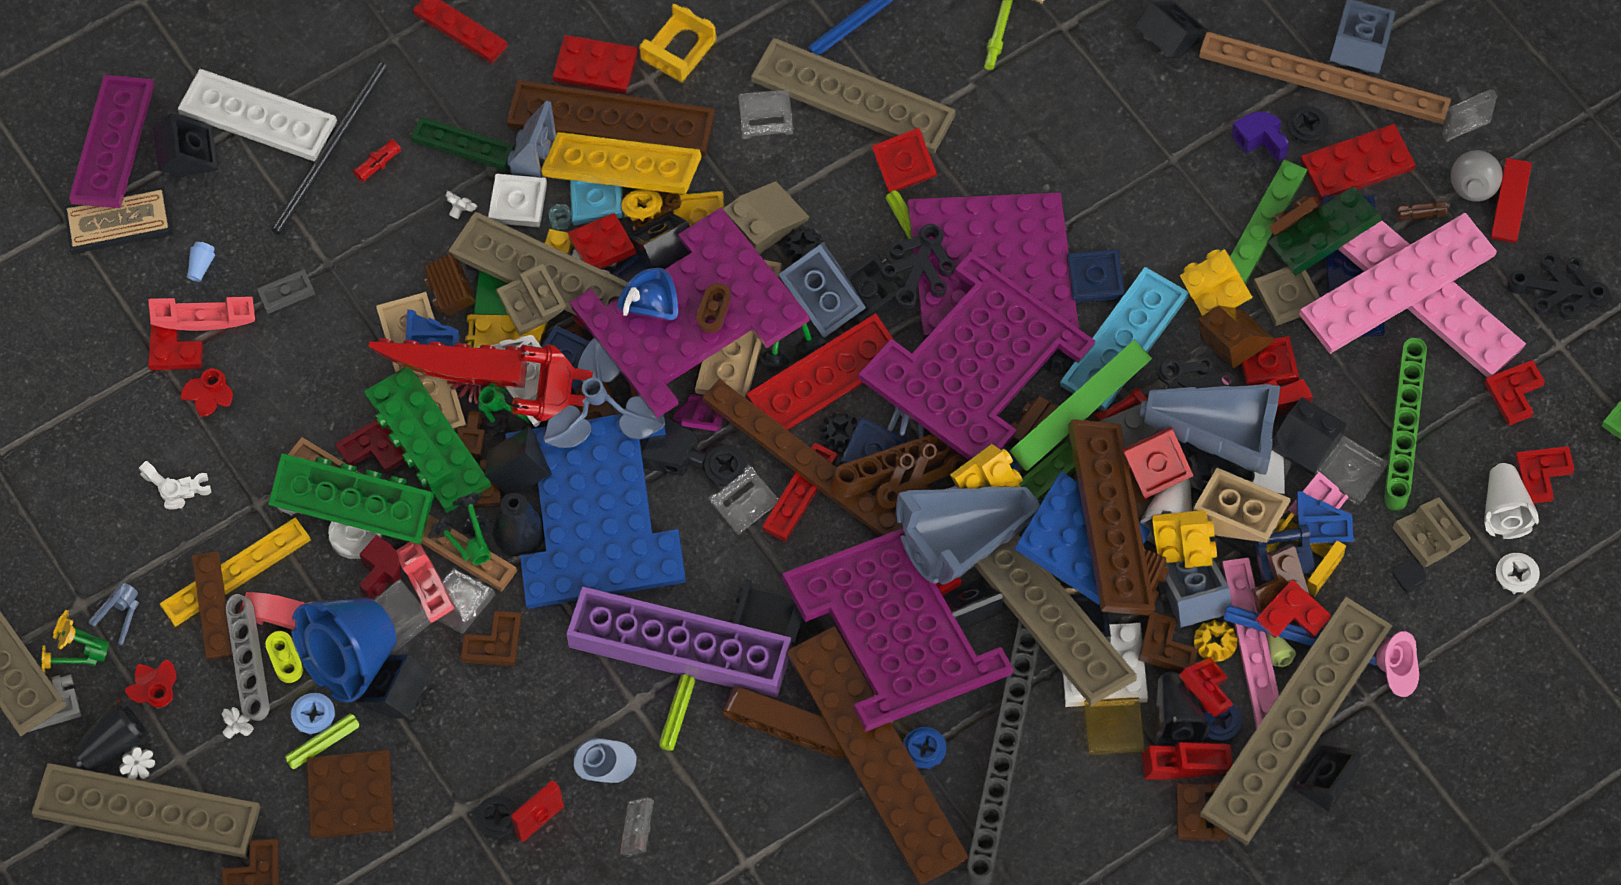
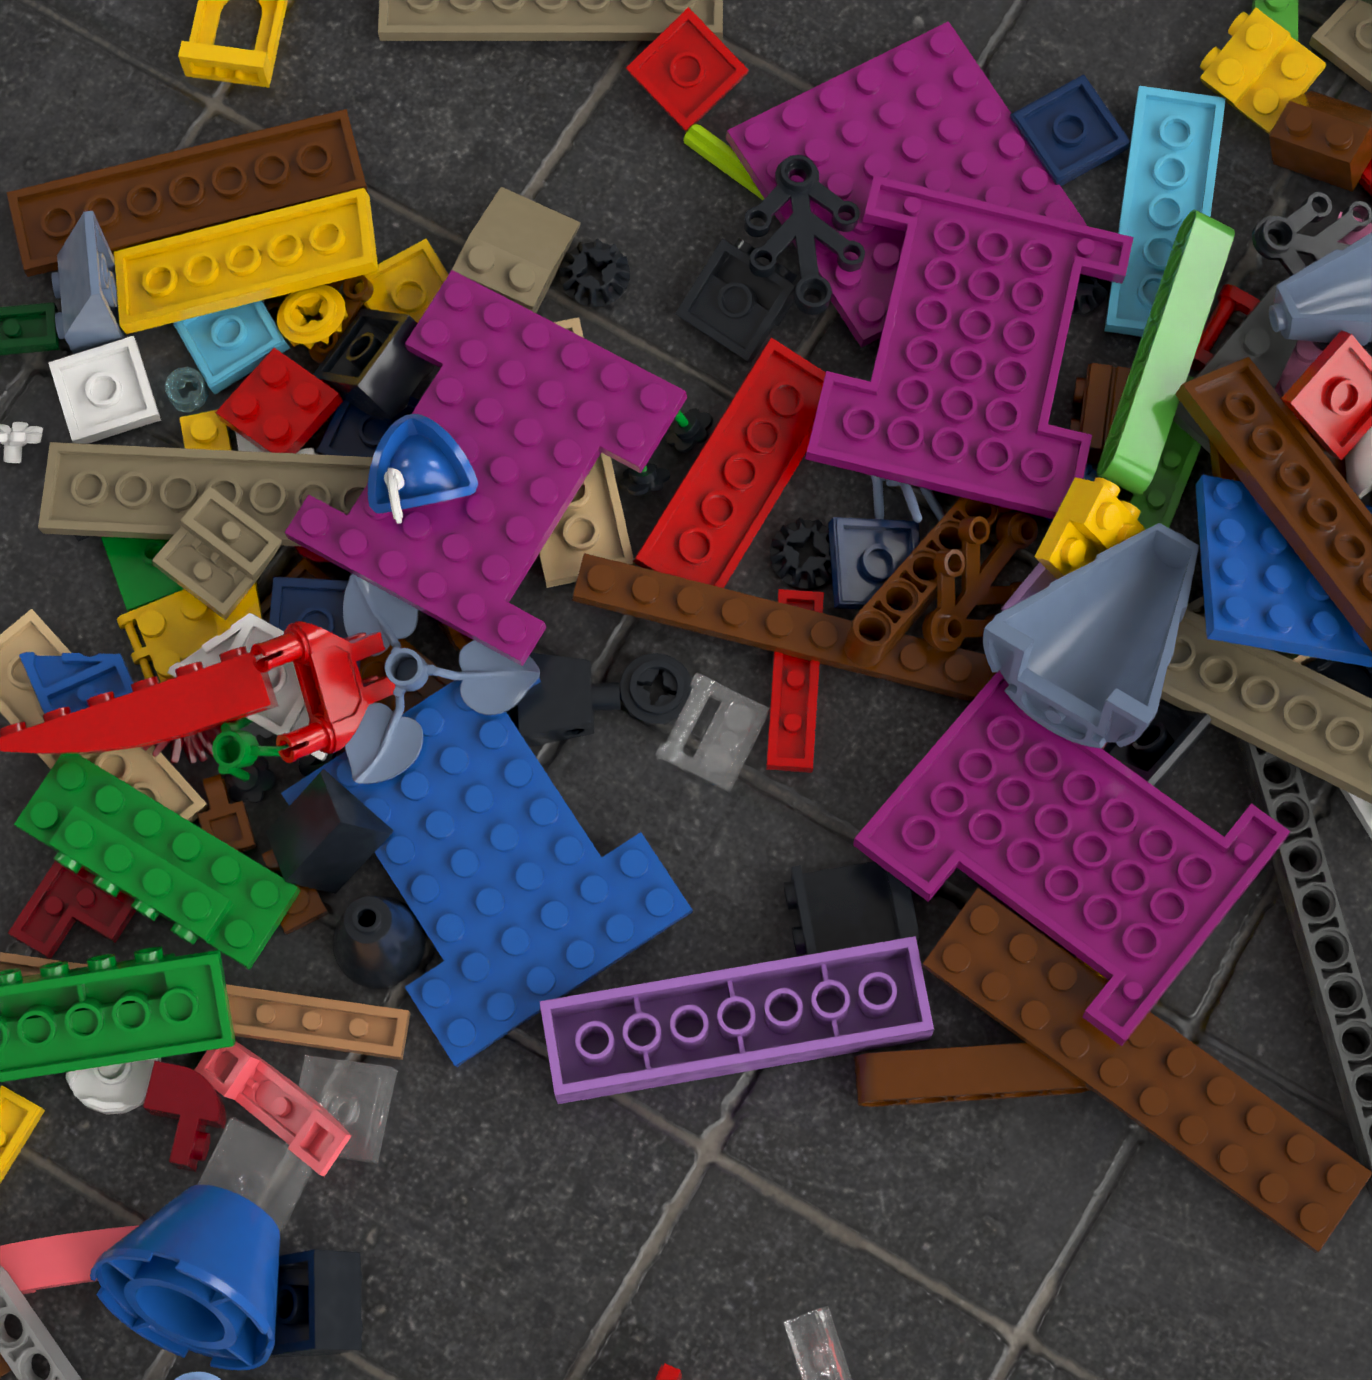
camera: 25 degrees left, 10 degrees up
(284, 658) = (102, 1337): neon yellow plate -> none
(449, 285) = (64, 582): reddish brown brick -> none
(476, 526) = (334, 1011): plant -> none
(497, 648) = (445, 1160): reddish brown plate -> none
(595, 64) = (117, 115): red plate -> none
(604, 760) = (712, 1274): sand blue piece -> none
(677, 712) = (785, 1135): lime axle -> none
(698, 415) = (572, 624): magenta slope -> none
(712, 309) = (532, 447): reddish brown plate -> none
(765, 105) = (423, 72): clear plate -> none
(822, 289) = (666, 332): sand blue slope -> none
(936, 743) = (1214, 1000): blue gear -> none

